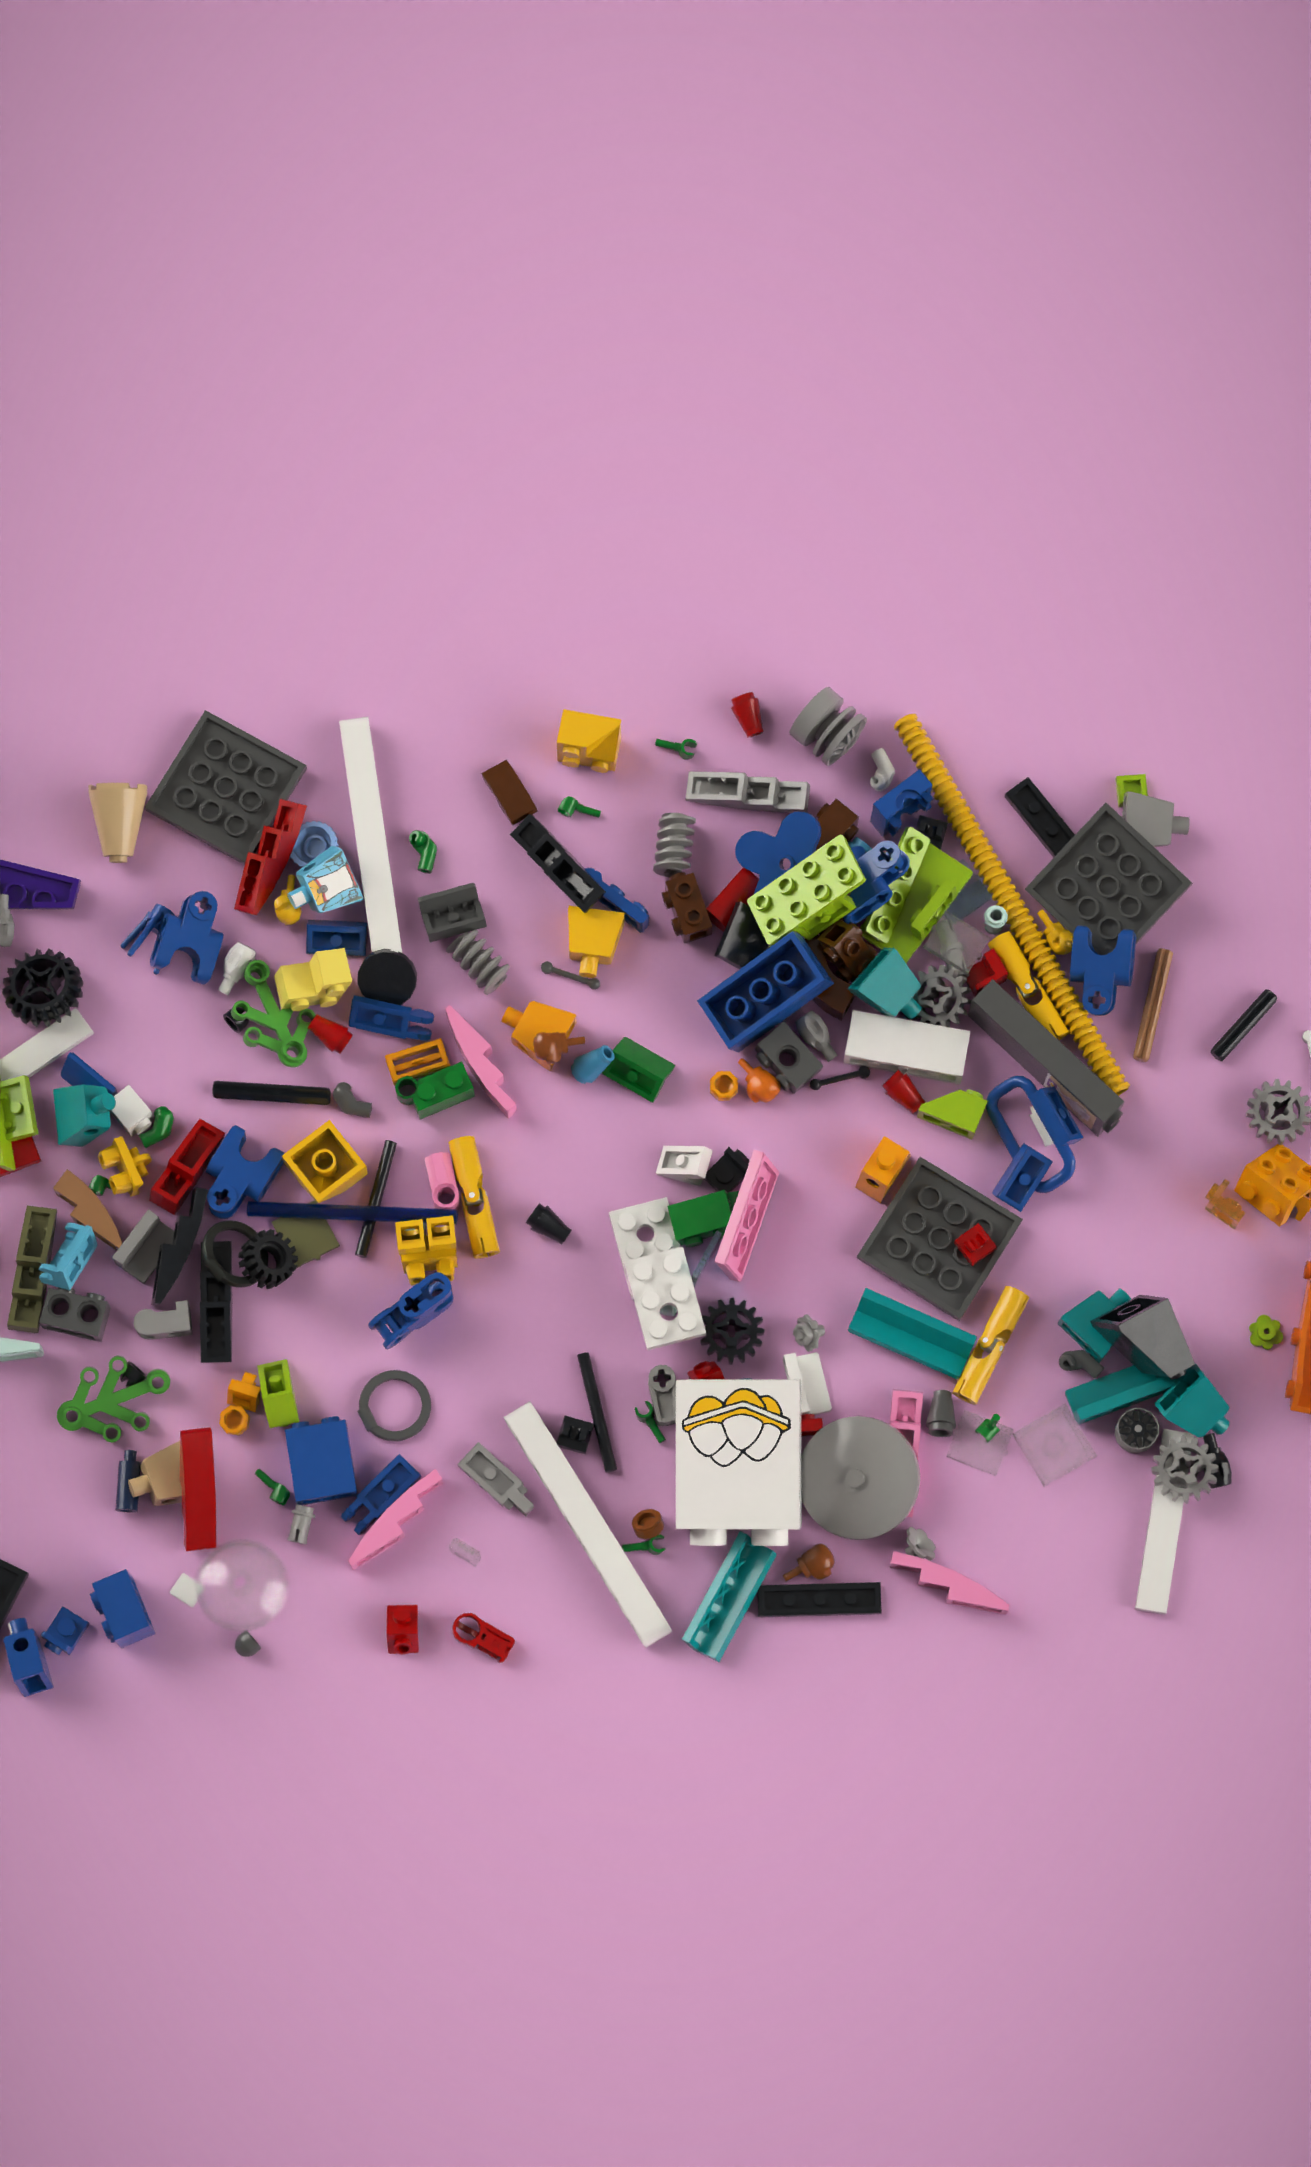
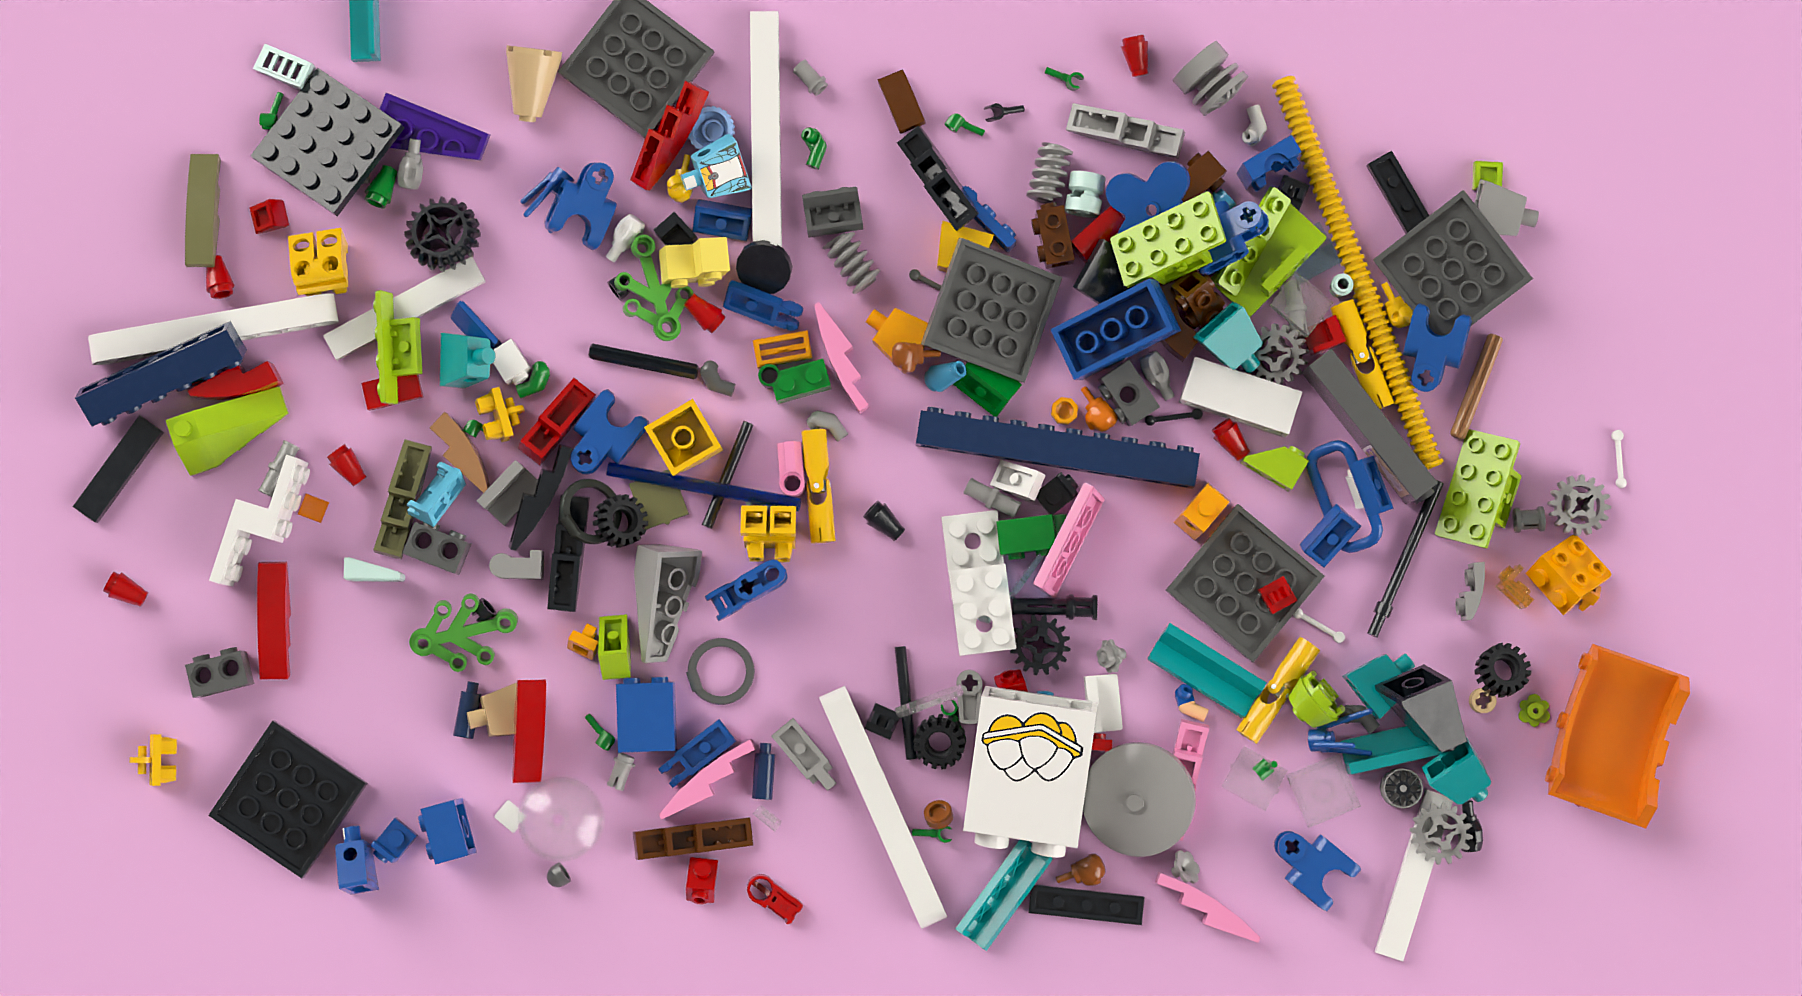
camera: 10 degrees right, 10 degrees up
(234, 1420) = (571, 666): light orange tile -> none
(287, 952) = (674, 231): none -> black panel
(321, 1327) = (662, 587): none -> light grey wedge
(387, 1585) = (693, 838): none -> reddish brown slope
(415, 784) = (810, 78): none -> light grey pin
(454, 1506) = (763, 773): none -> dark blue cylinder
(477, 1129) = (829, 421): none -> light grey arm
(588, 741) = (982, 63): yellow slope -> none
(613, 789) = (1000, 111): none -> black hand
(621, 1401) = (929, 701): none -> clear tile
(625, 1458) = (945, 726): none -> black tyre
(632, 990) = (991, 310): none -> dark grey plate
(660, 1185) = (992, 498): none -> light grey pin
(714, 859) = (1085, 193): none -> light aqua wheel
(721, 1125) = (1058, 449): none -> dark blue brick
(757, 1287) = (1020, 605): none -> black pin
(896, 1373) = (1187, 705): none -> arm
(941, 1414) = (1223, 748): dark grey cone -> none
(1030, 1349) = (1315, 701): none -> lime cone
(1046, 1282) = (1337, 636): none -> white hinge
(1047, 1390) = (1324, 740): none -> blue plant
(1052, 1522) = (1312, 863): none -> blue piece
(1090, 1245) = (1383, 609): none -> black bar
(1173, 1109) = (1480, 489): none -> lime bracket
(1179, 1222) = (1469, 601): none -> light grey slope
(1216, 1333) = (1476, 695): none -> tan bush
(1217, 1304) = (1513, 660): none -> black tyre
(1228, 1133) = (1529, 519): none -> dark grey bush
(1244, 1025) = (1558, 417): black axle -> none

